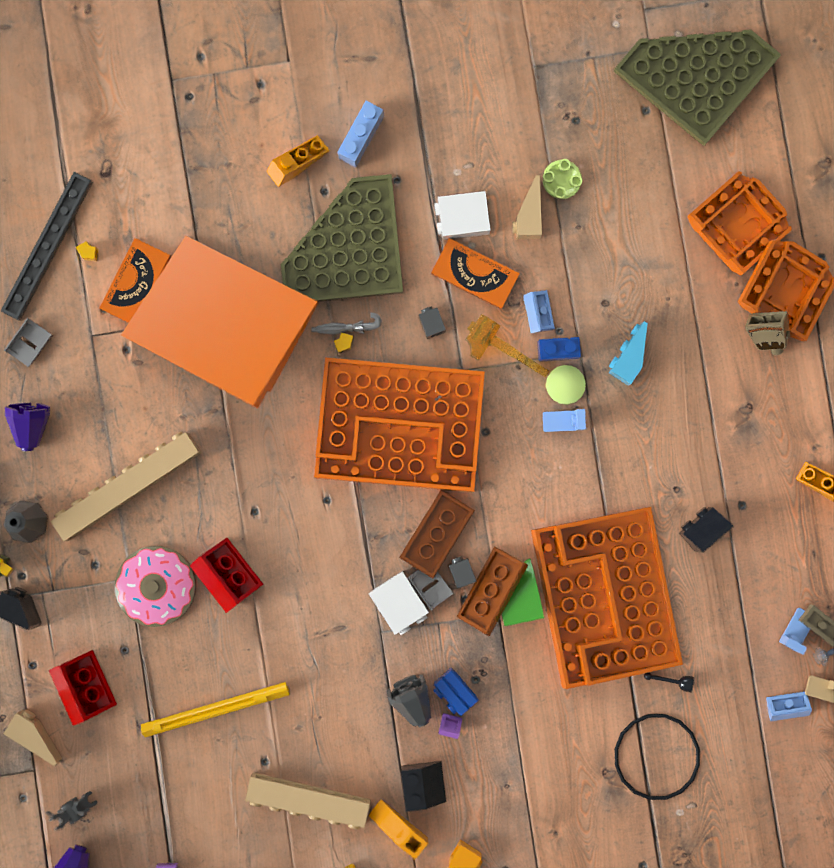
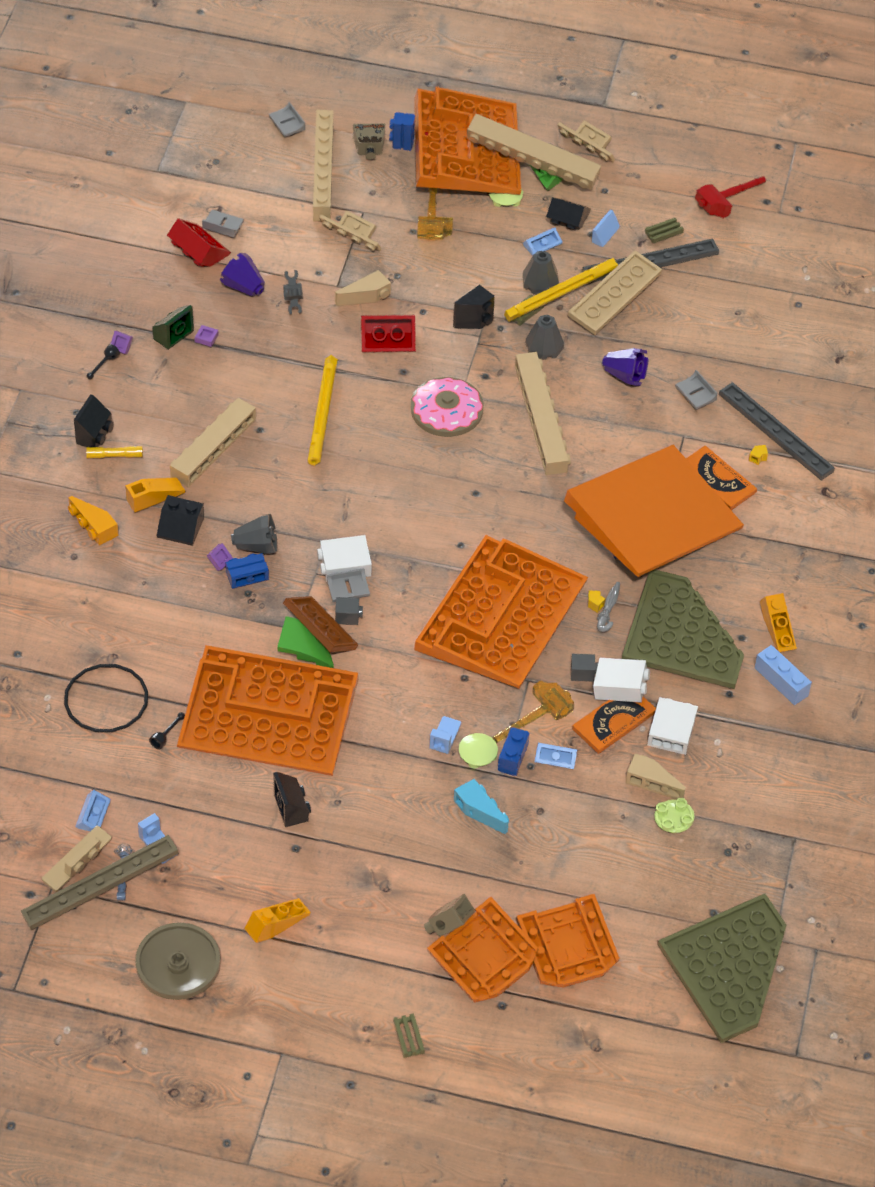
camera: 105 degrees right, 35 degrees down
(226, 574) = (432, 452): red slope -> none
(435, 279) = (621, 680): none -> white brick
(437, 534) = (390, 606): dark orange tile -> none

